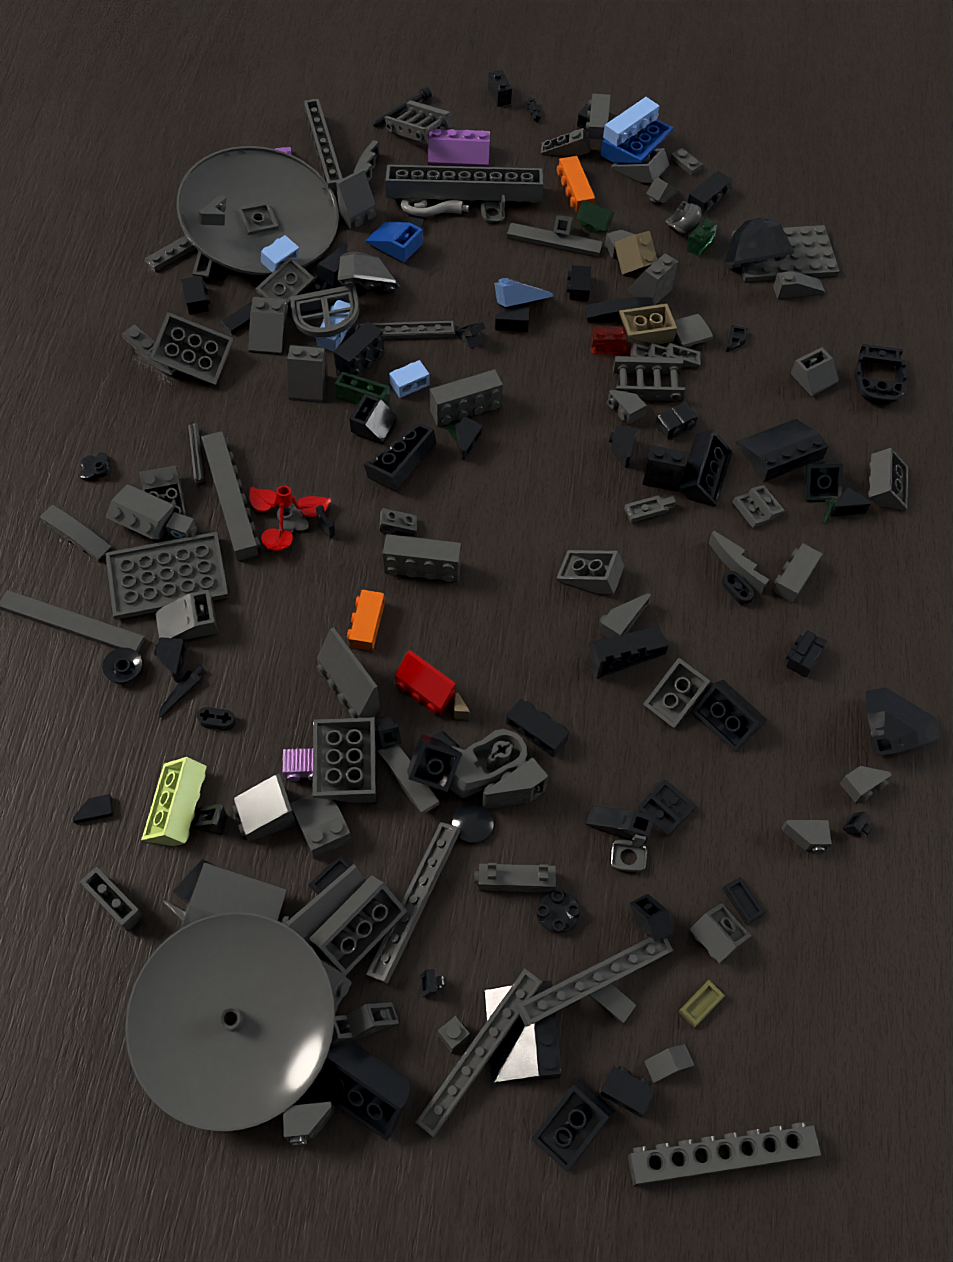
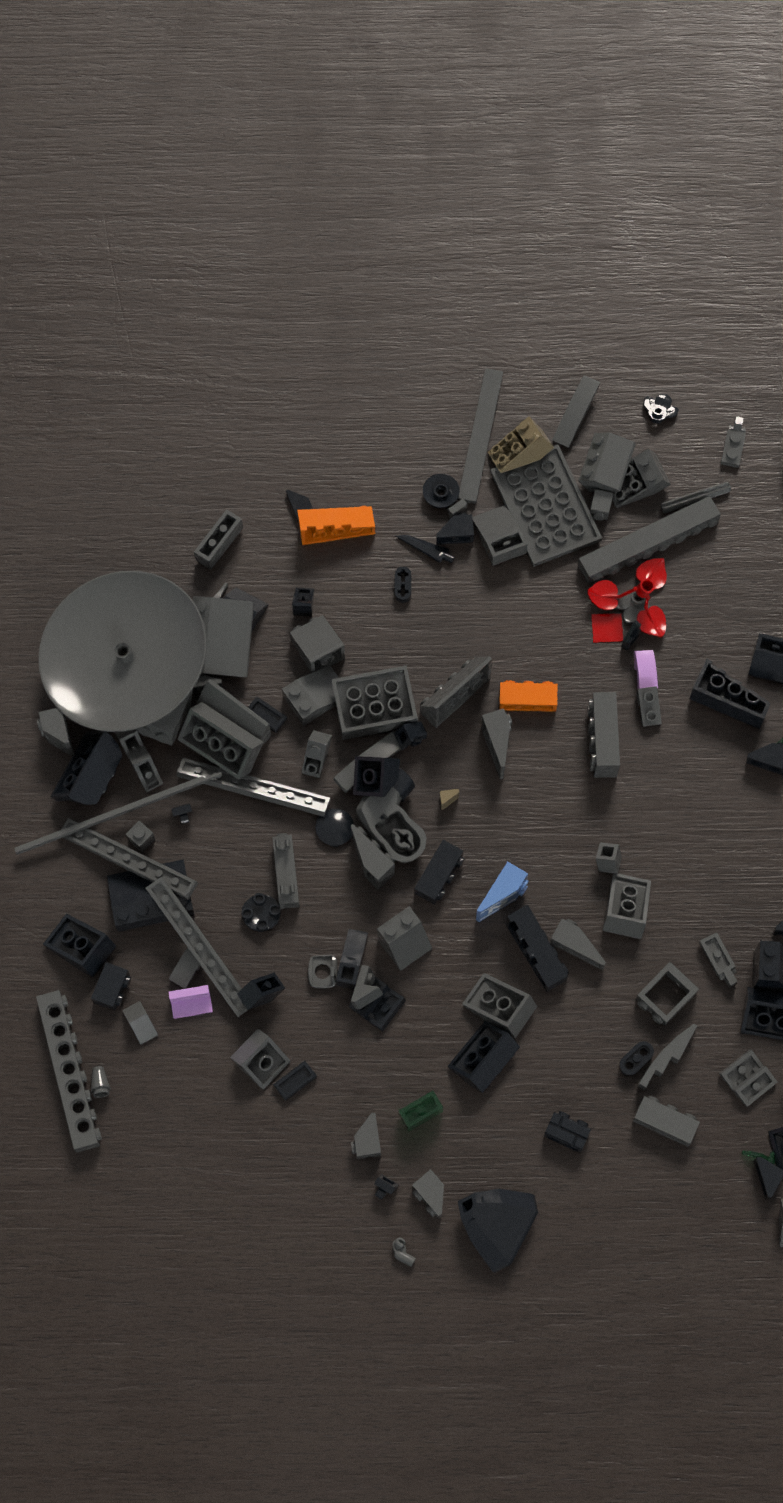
camera: 85 degrees right, 10 degrees up
(98, 583) = (520, 446): none -> dark tan slope
(129, 773) = (335, 524): none -> orange wedge
(148, 653) = (459, 507): none -> dark grey tile
(151, 415) = (734, 444): none -> dark grey hinge
(174, 802) = (314, 569): yellowish green slope -> none
(298, 764) = (366, 660): lavender brick -> none
(308, 546) = (607, 627): none -> red sticker
(360, 517) = (646, 668): none -> lavender slope
(388, 828) = (316, 753): none -> dark grey slope
(399, 642) = (496, 731): none -> dark grey slope
(423, 1067) = (114, 813): none -> dark grey piece
(425, 684) = (464, 760): red slope -> none
(544, 575) = (608, 857): none -> dark grey brick
(566, 668) = (505, 890): none -> medium blue slope
(603, 768) = (404, 938): none -> dark grey slope
(651, 1001) = (190, 1001): none -> lavender panel
(660, 813) = (363, 991): none -> dark grey slope
(669, 563) = (680, 980): none -> dark grey window
(701, 1003) = (195, 1047): olive tile -> none
(738, 1118) = (99, 1082): none -> dark grey cone
(785, 777) = (420, 1111): none -> clear green brick
(923, 820) = (400, 1252): none -> dark grey arm

